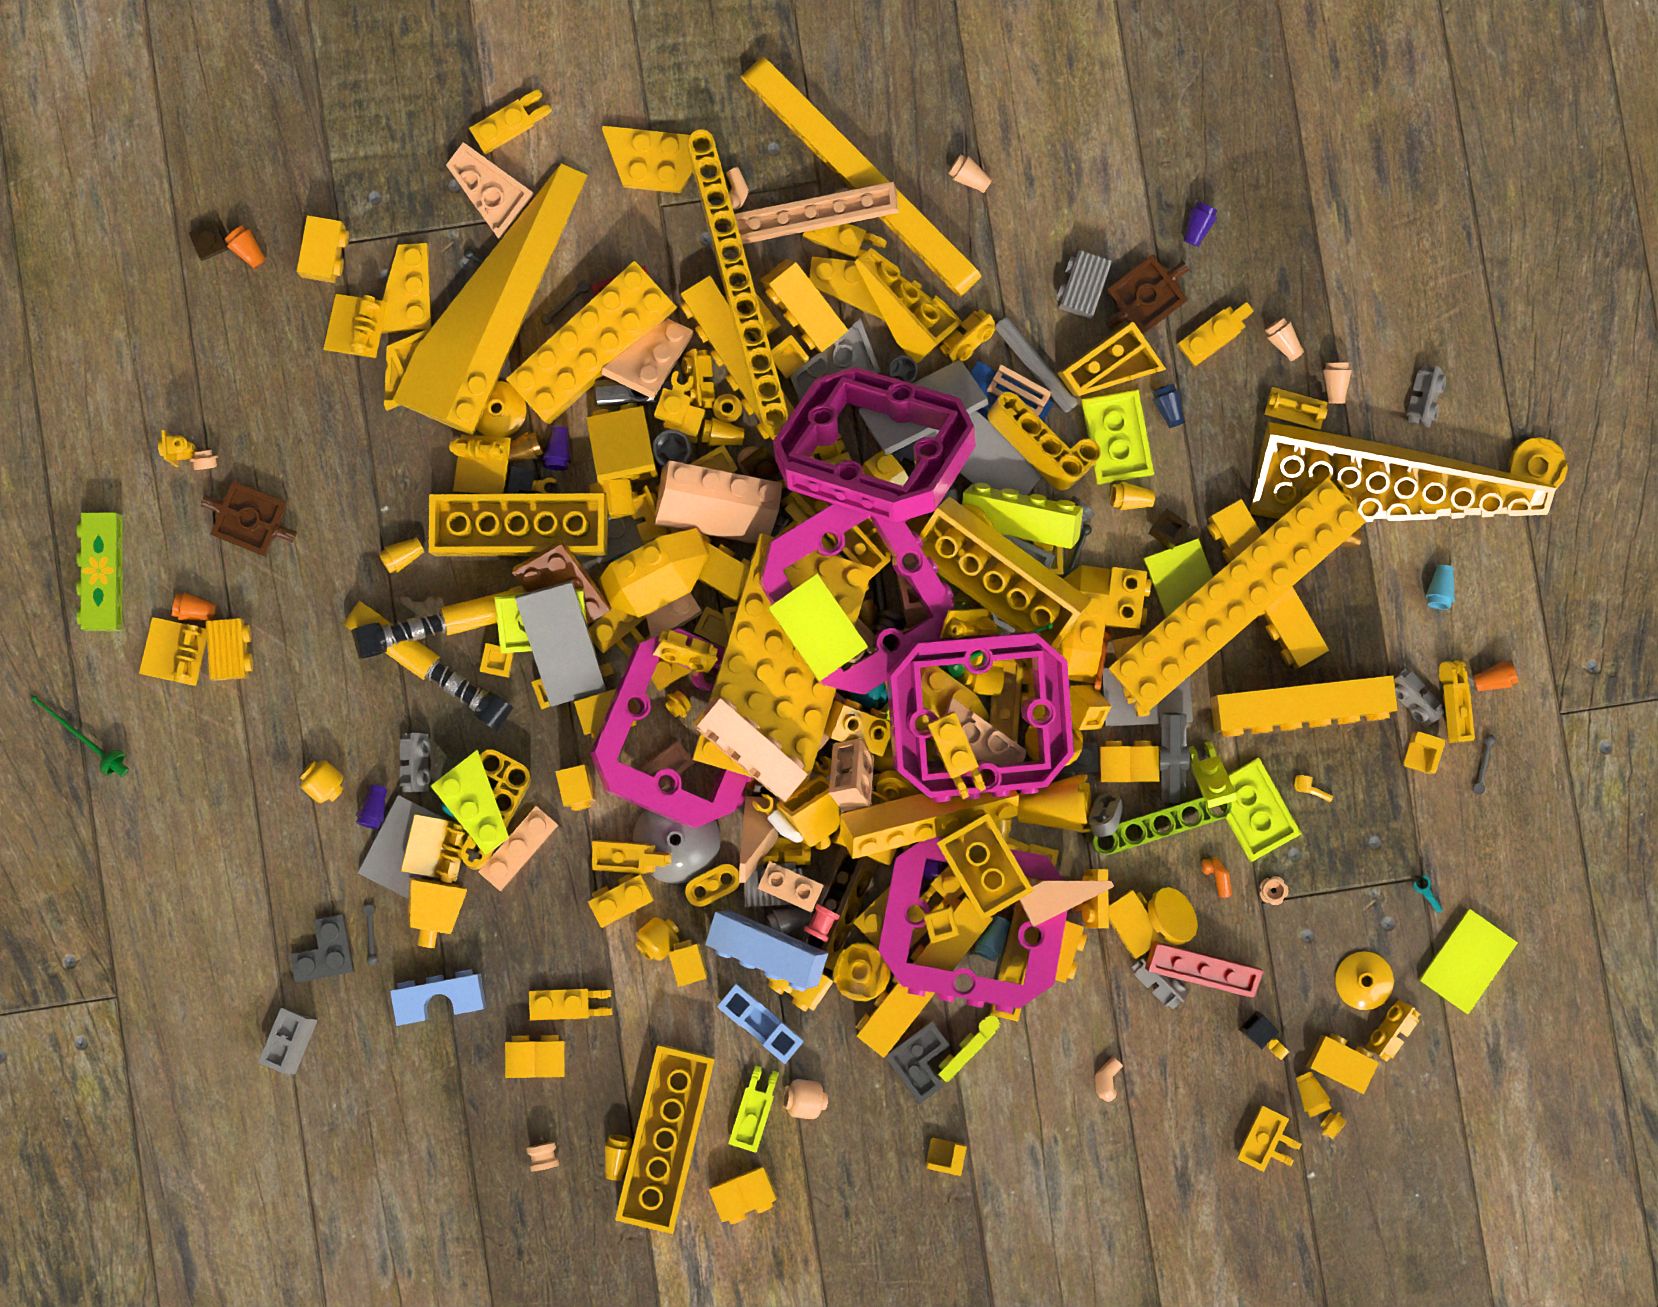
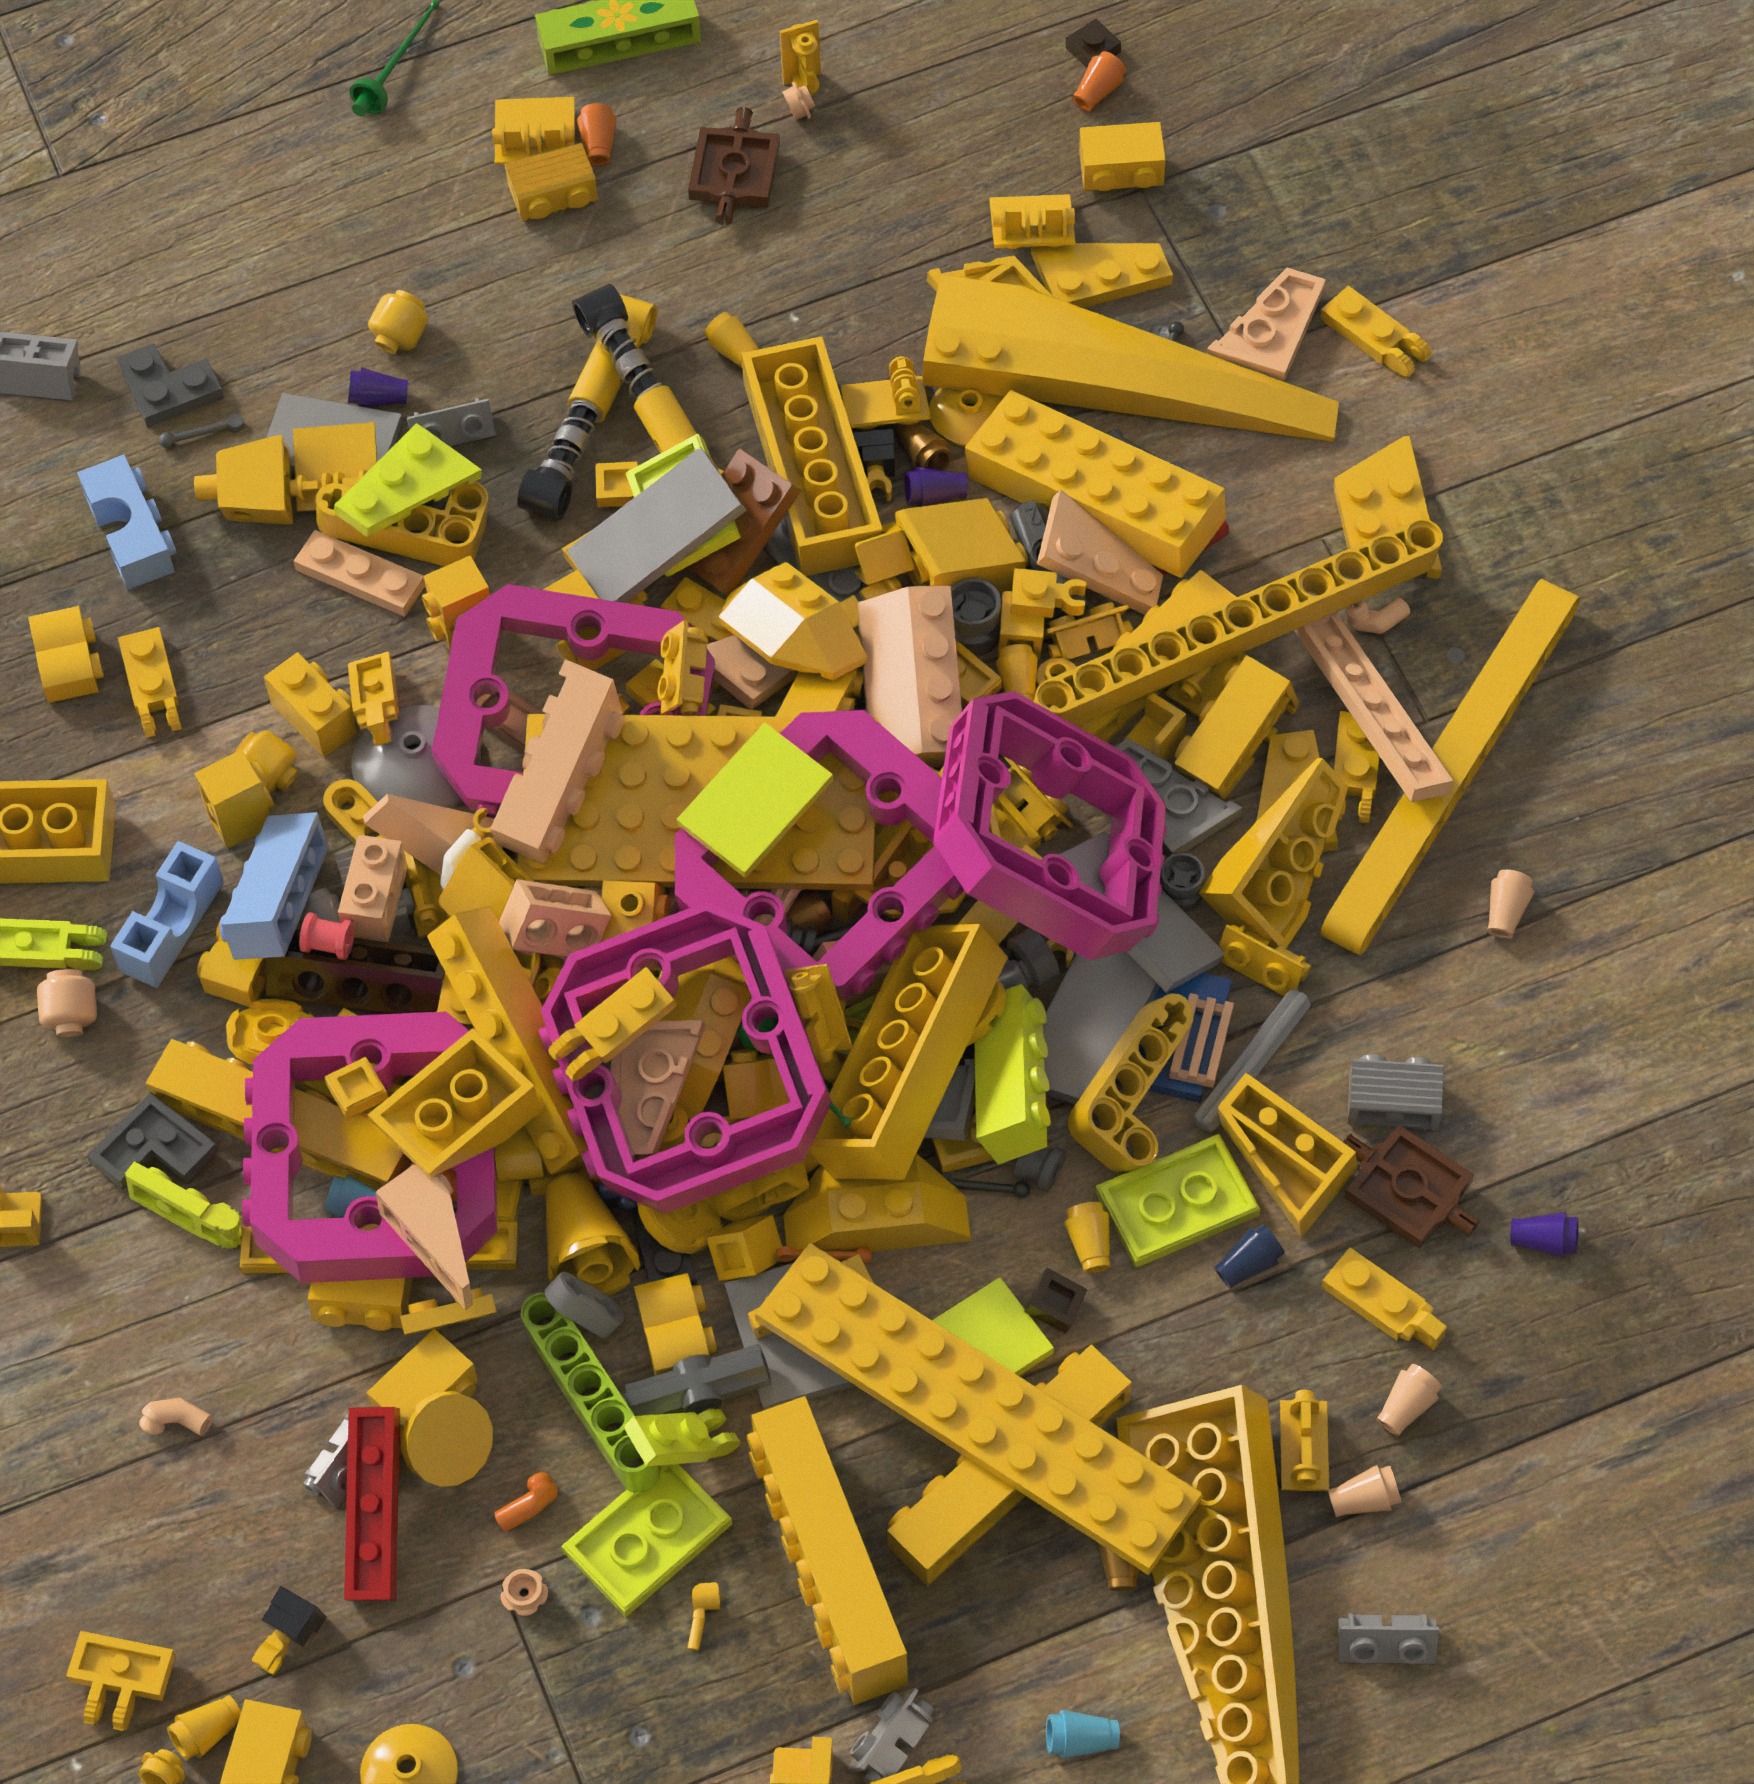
camera: 80 degrees right, 25 degrees down
(1126, 599) = (928, 1262): yellow brick -> none

